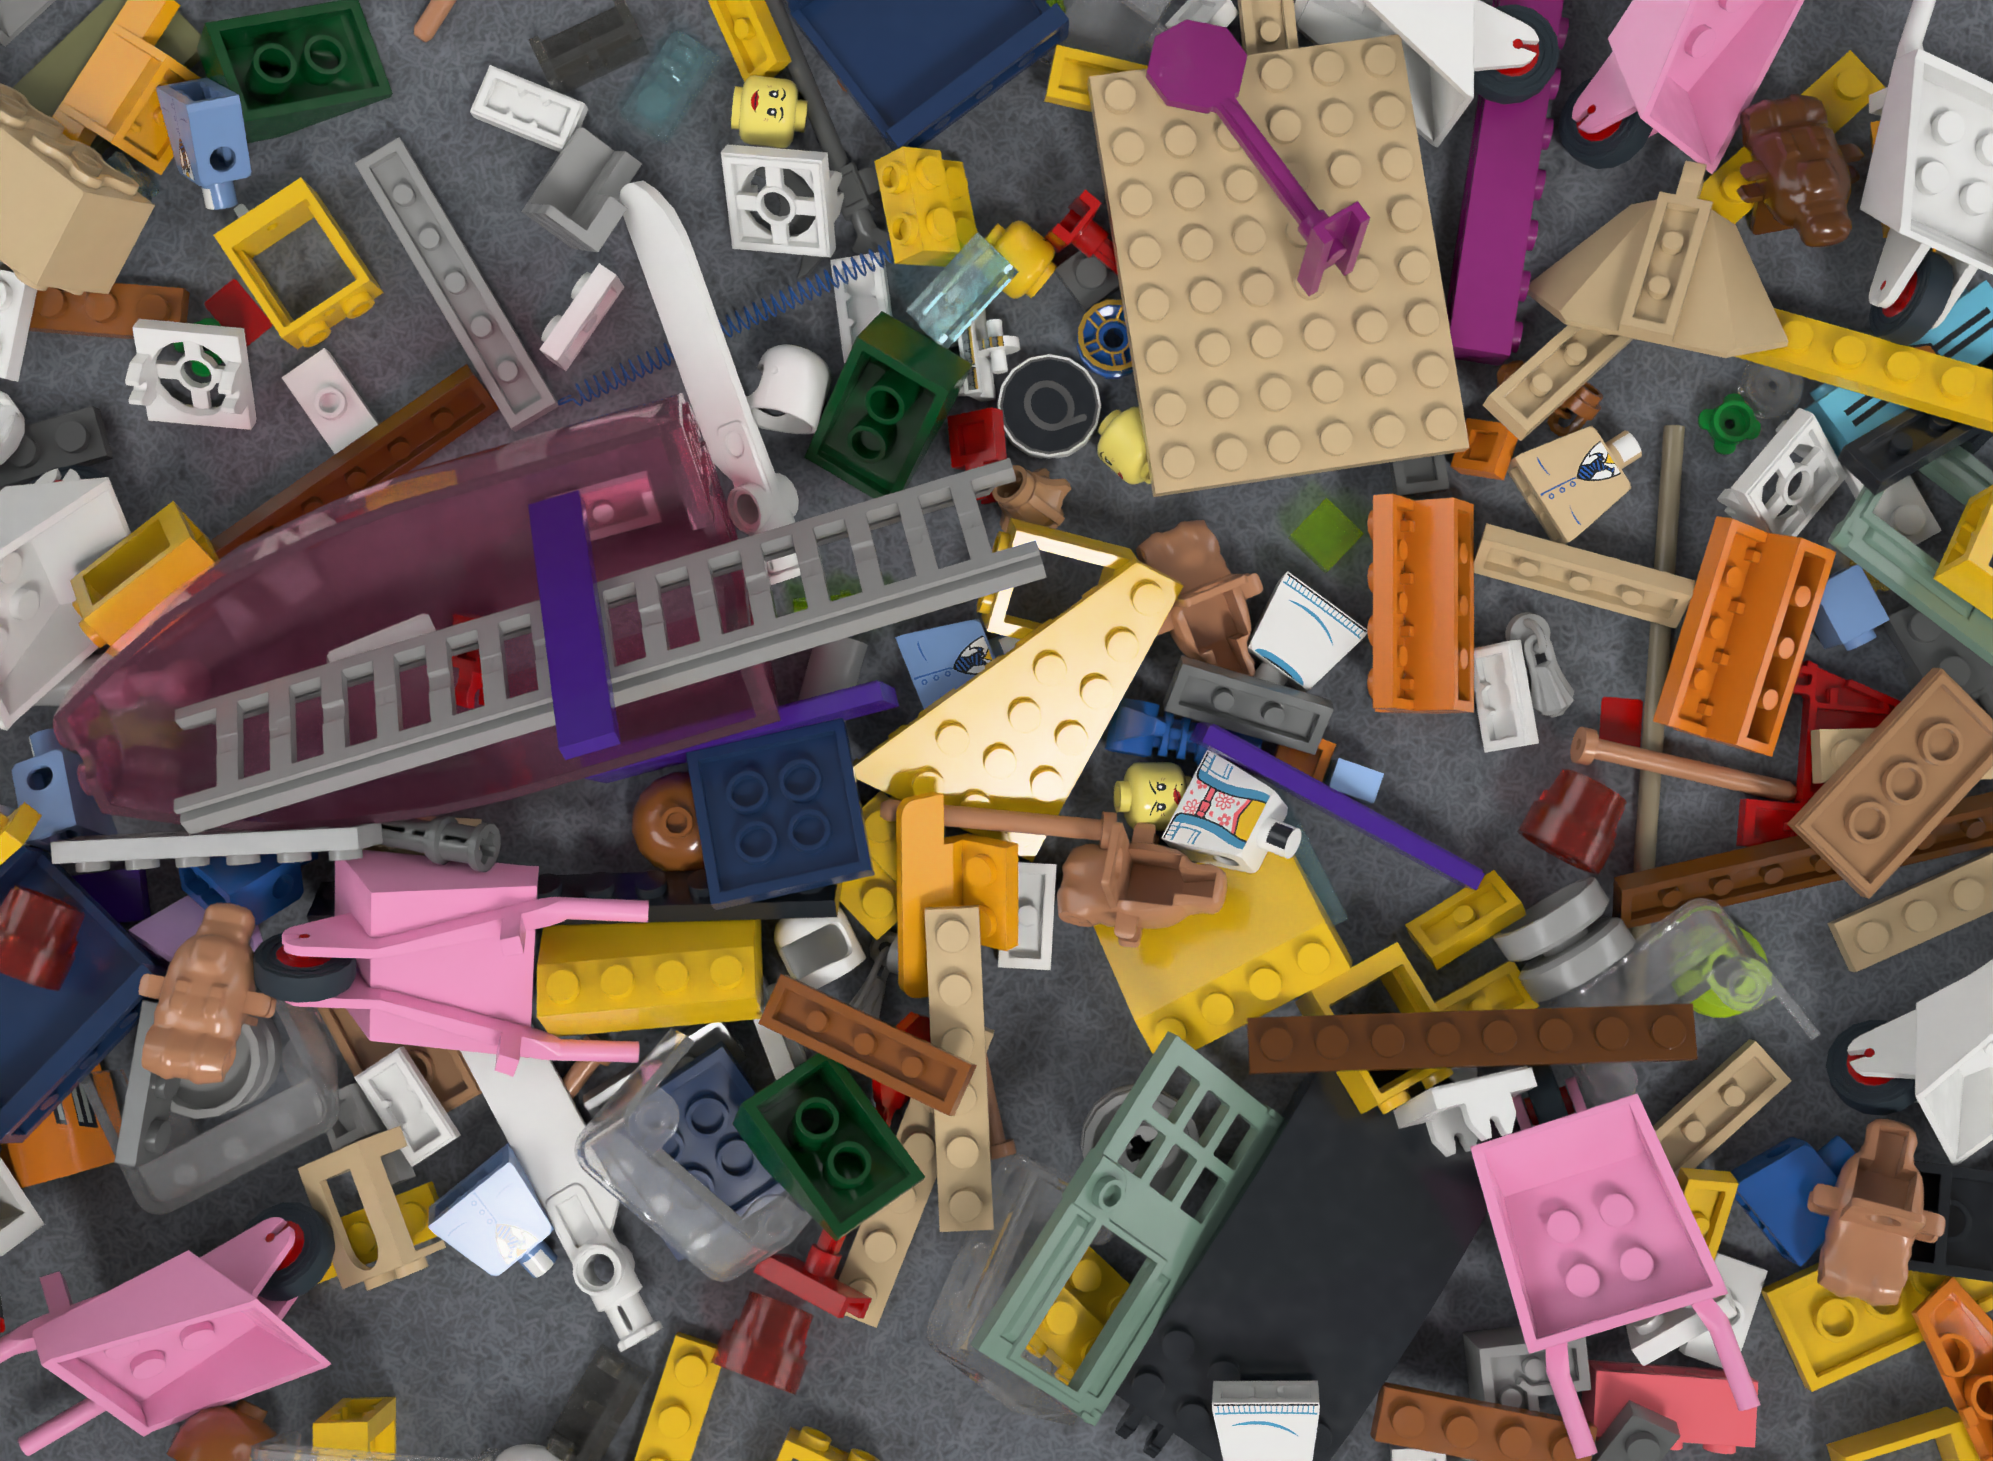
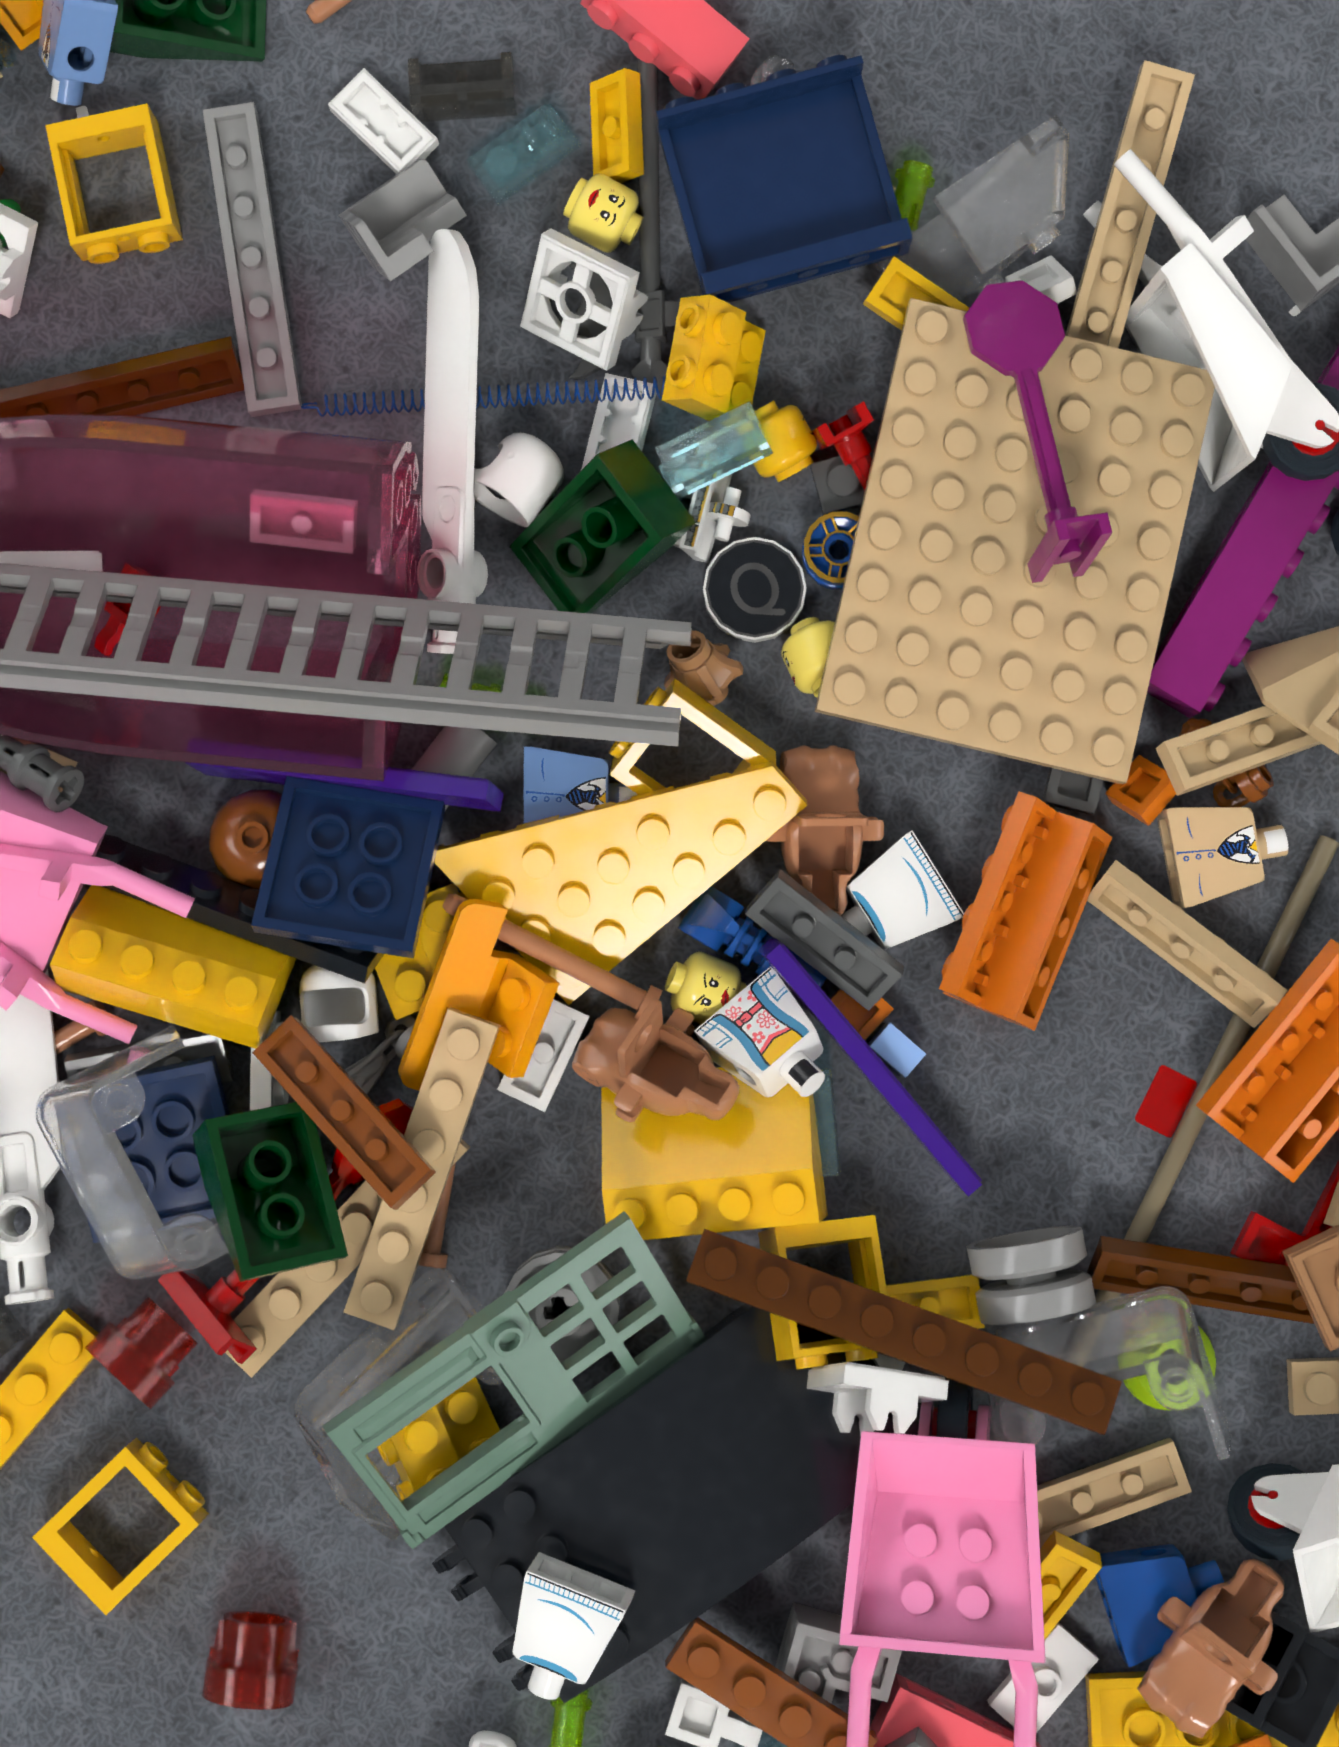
camera: 20 degrees right, 0 degrees up
(236, 308) = (42, 203): red sticker -> none
(330, 400) = (93, 320): white plate -> none
(573, 626) = (225, 617): dark purple tile -> none
(591, 301) = (337, 345): white plate -> none
(977, 440) = (674, 595): red plate -> none
(1326, 535) = (963, 811): clear neon green plate -> none
(1465, 920) = (948, 1220): yellow plate -> none
(1503, 697) = (1067, 1027): white plate -> none
(1549, 688) = (1114, 1036): light grey piece -> none
(1575, 821) = (1087, 1169): clear red piece -> none
(1587, 747) = (1127, 1105): nougat bar -> none
(1668, 1331) = (986, 1676): white plate -> none

